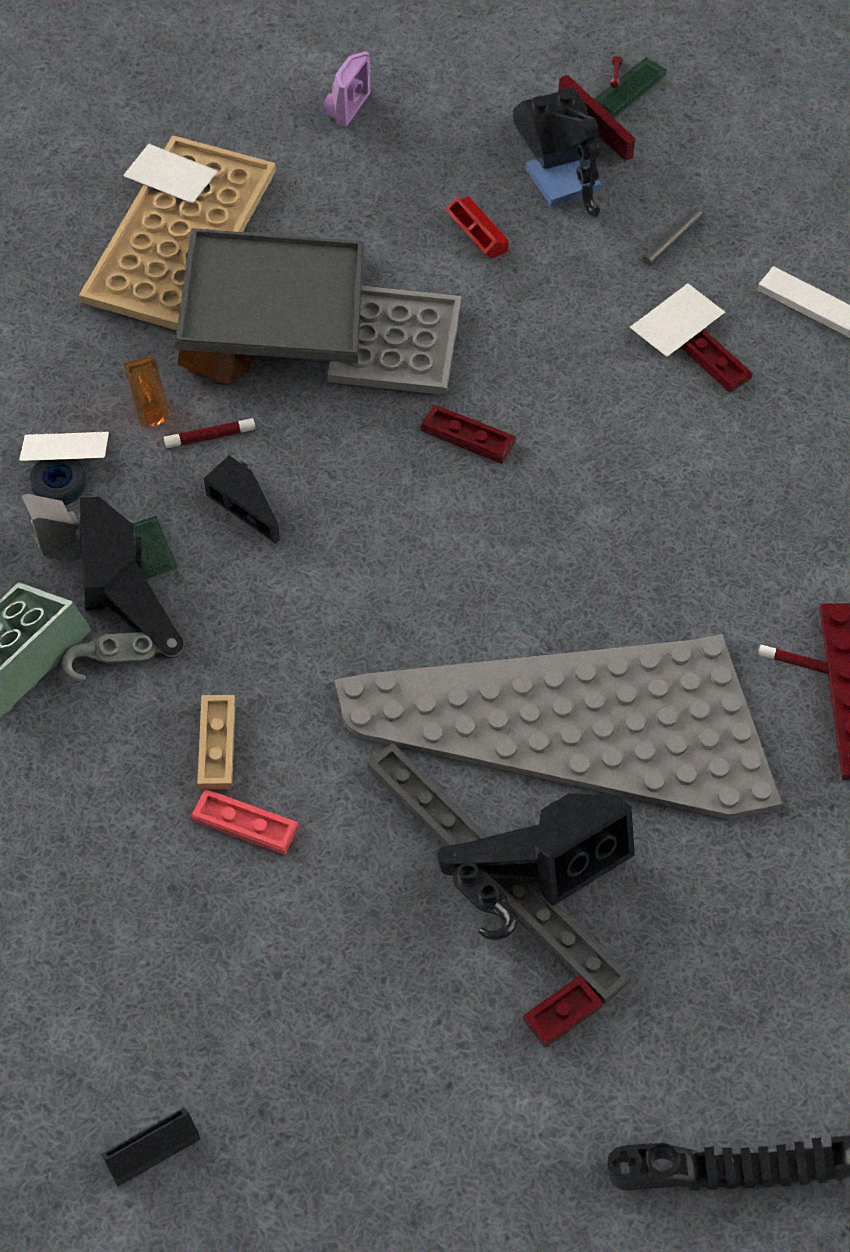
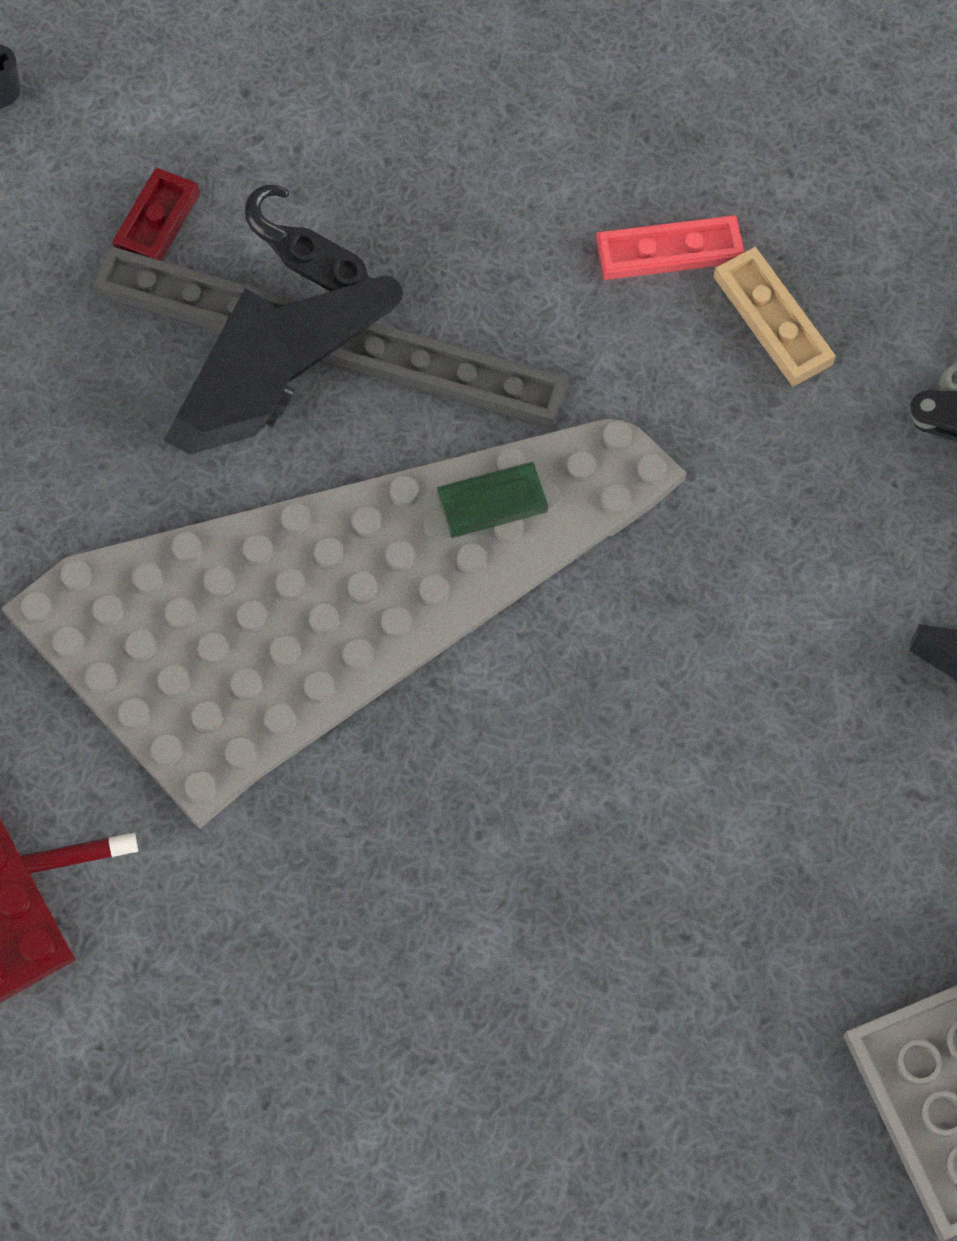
camera: 150 degrees right, 10 degrees up
(460, 708) = (492, 499): none -> clear green tile
(468, 433) = (763, 979): dark red tile -> none

